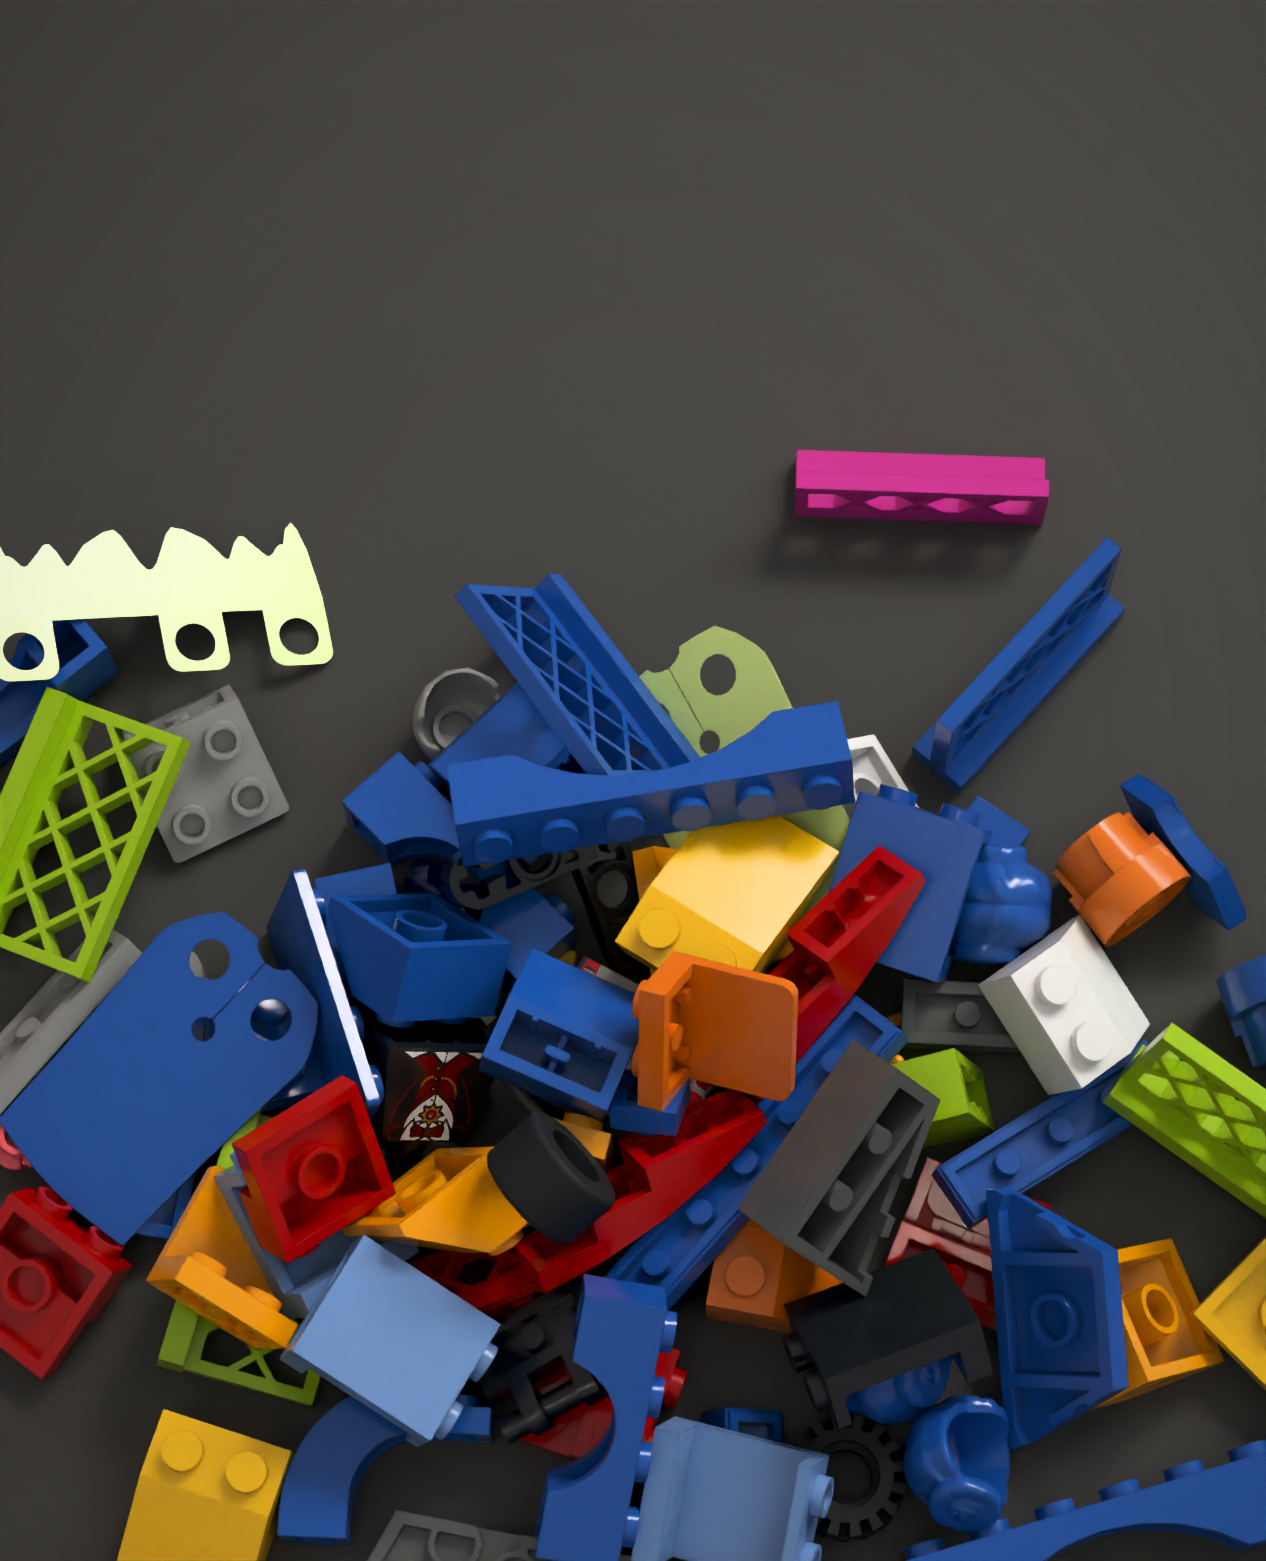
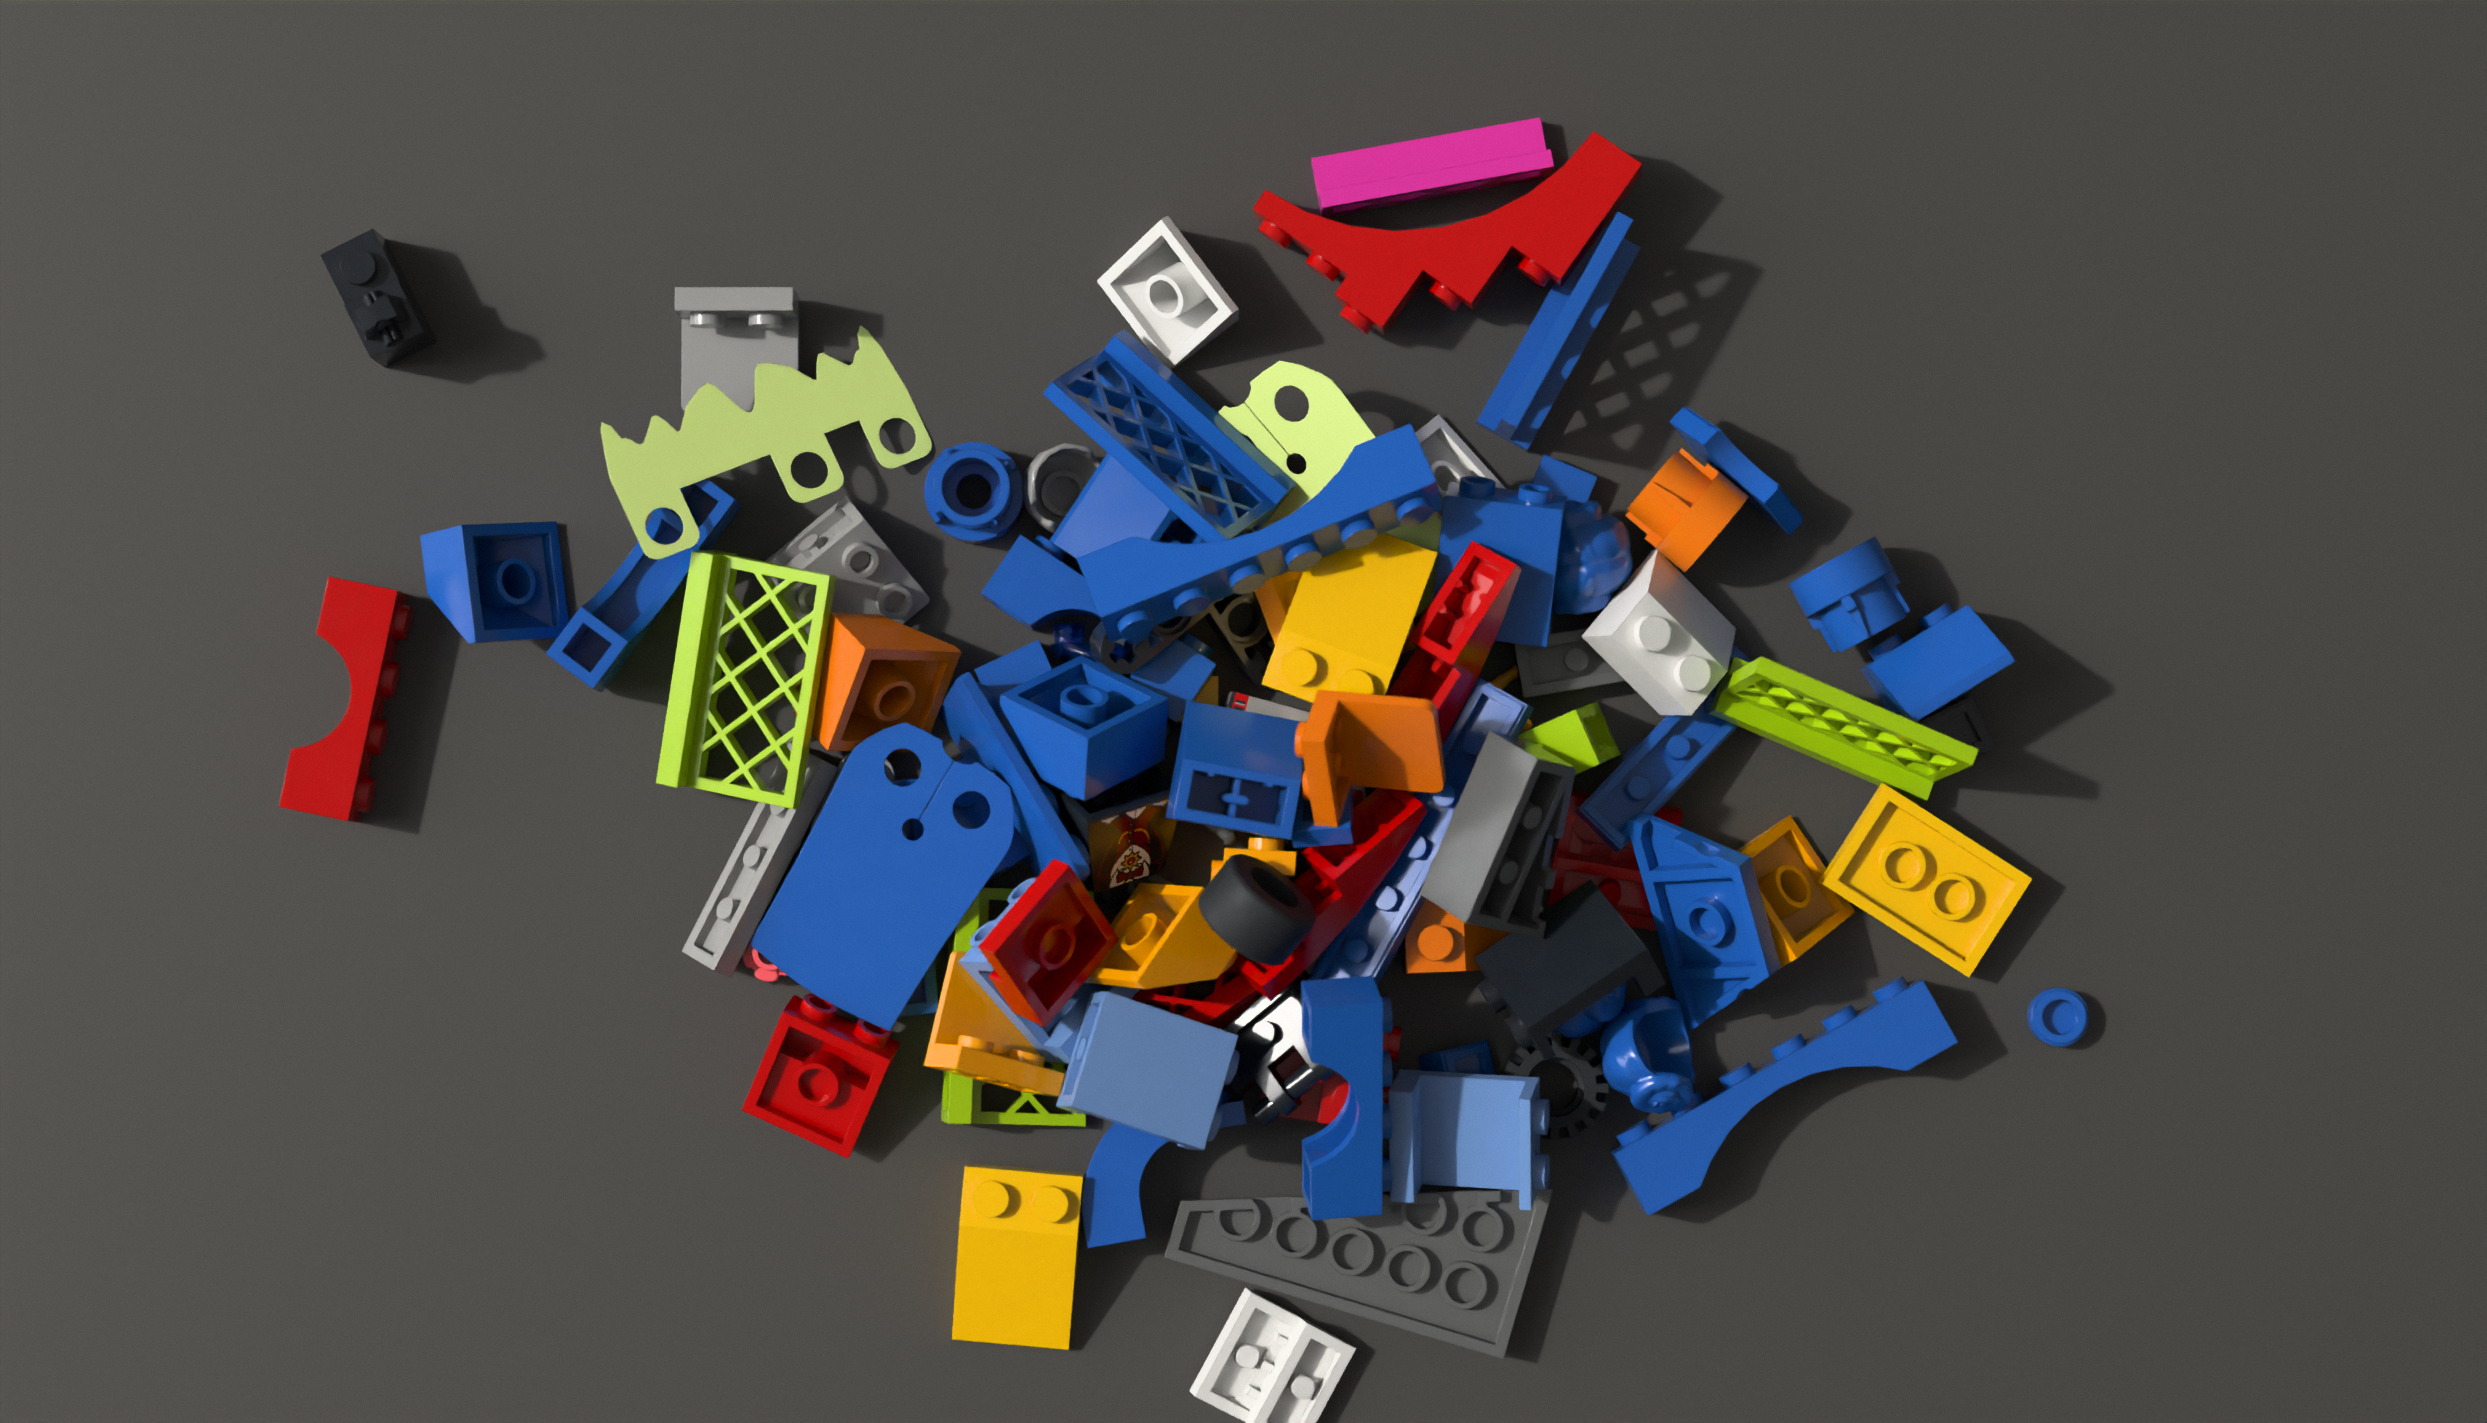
camera: 20 degrees left, 15 degrees up
(160, 486) = (732, 332): none -> light grey bracket
(209, 862) = (878, 678): none -> orange slope
(356, 675) = (967, 462): none -> blue piece
(618, 550) = (1169, 295): none -> white slope
(929, 574) = (1385, 268): none -> red arch

